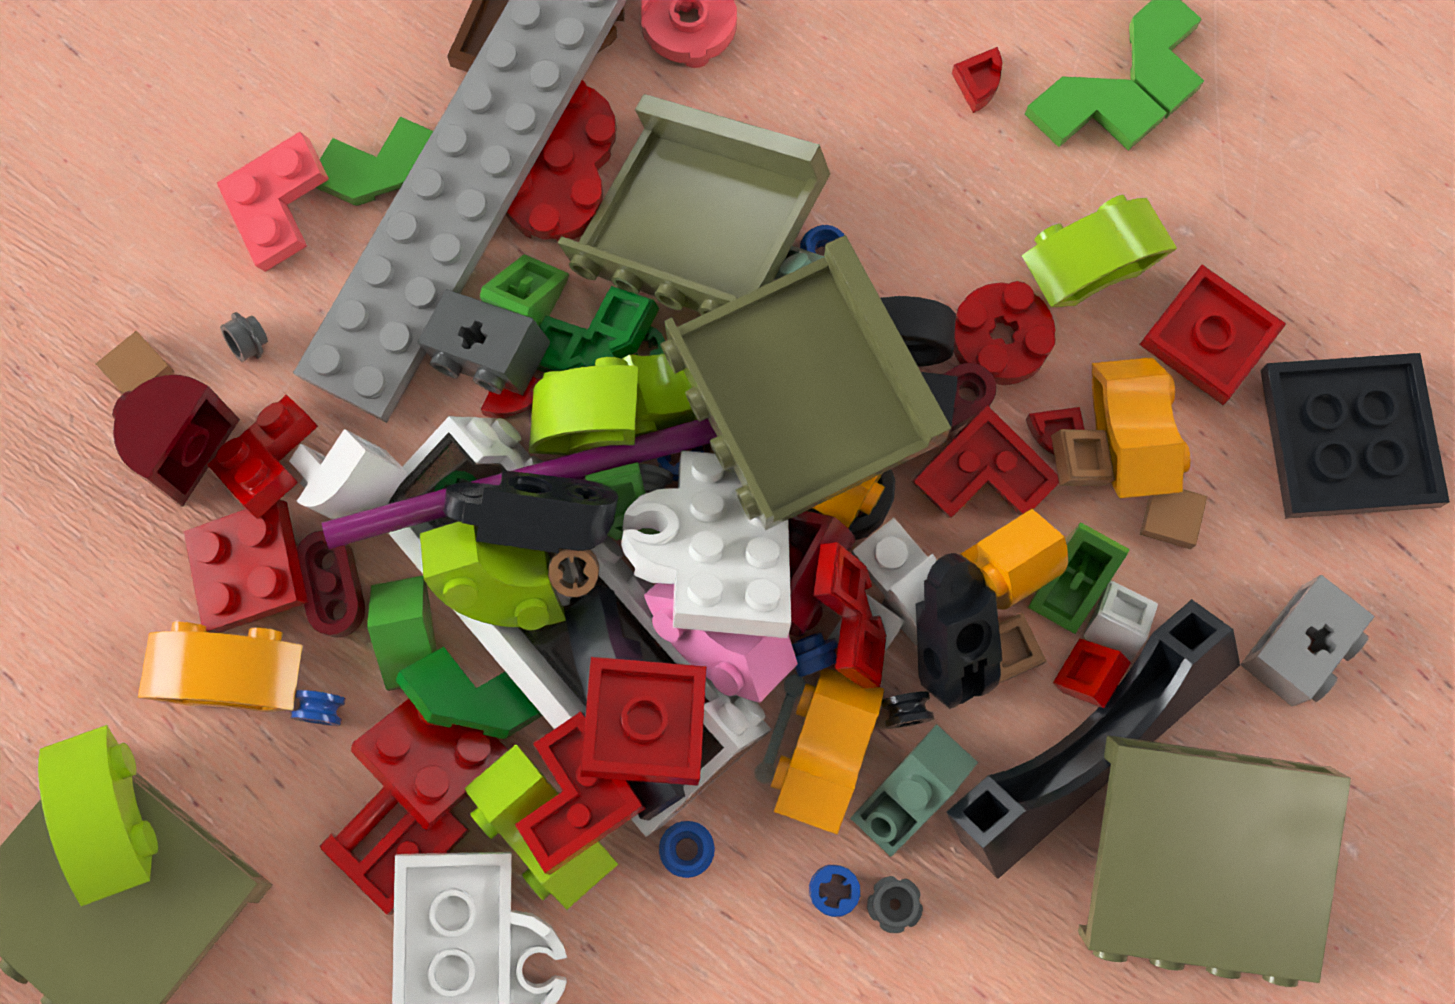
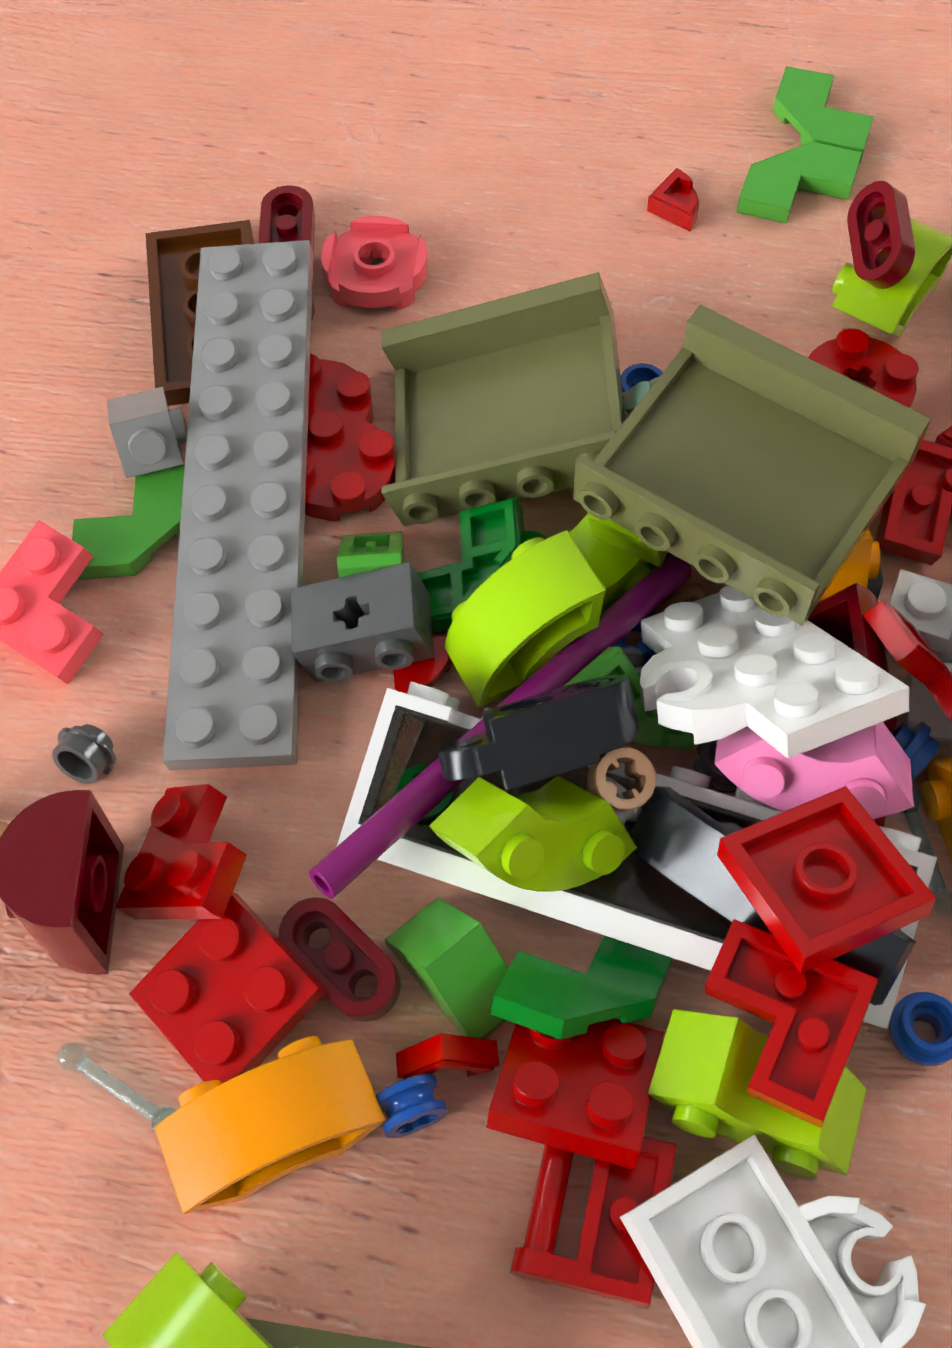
camera: 25 degrees left, 15 degrees down
(130, 553) = (73, 1057): none -> clear light blue hinge
(349, 478) = (307, 817): white brick -> none
(361, 690) = (448, 1051): none -> red tile
(417, 90) = (146, 431): none -> light grey brick
(1083, 222) = (881, 235): none -> dark red plate

